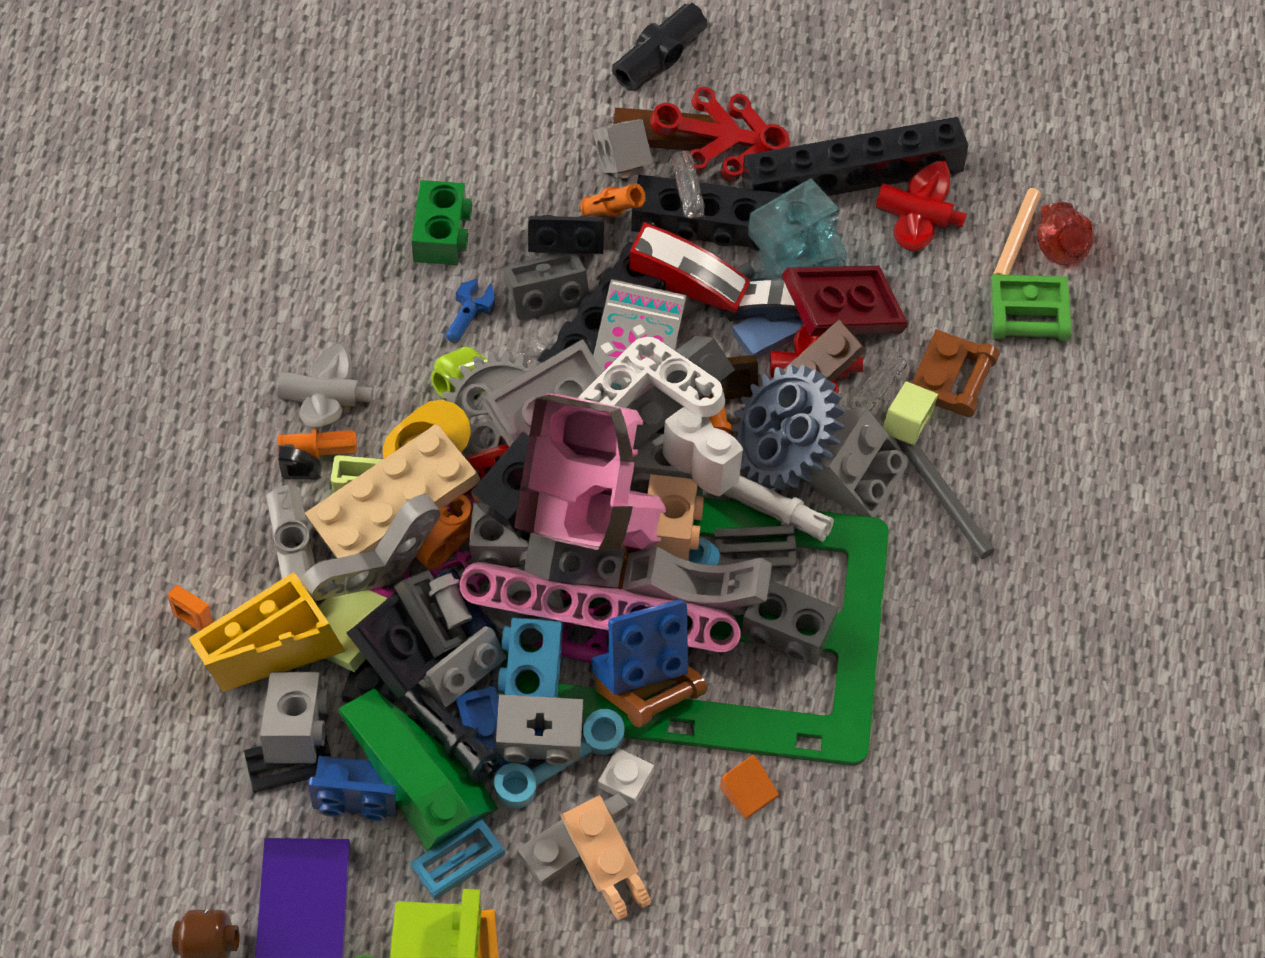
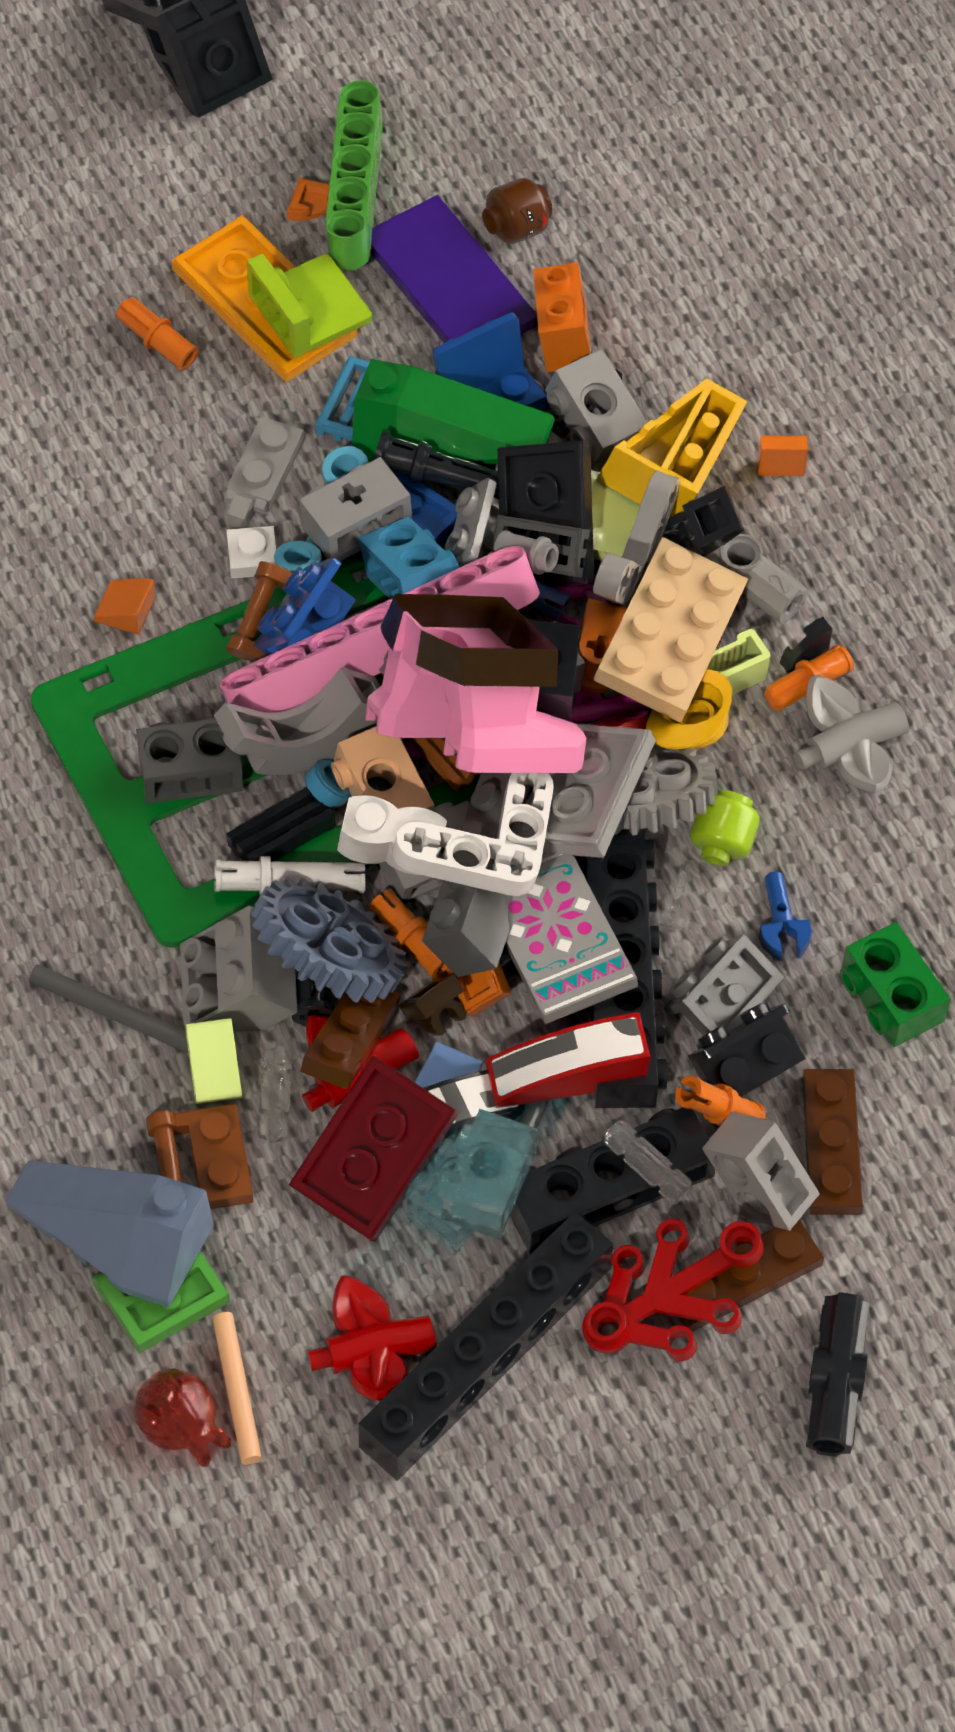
camera: 145 degrees right, 0 degrees up
(254, 808) = (561, 315): none -> orange brick
(301, 550) = (705, 523): none -> black slope
(552, 169) = (832, 1140): none -> reddish brown plate
(604, 854) = (214, 458): light nougat hinge -> none
(1037, 343) = (123, 1223): none -> sand blue wedge

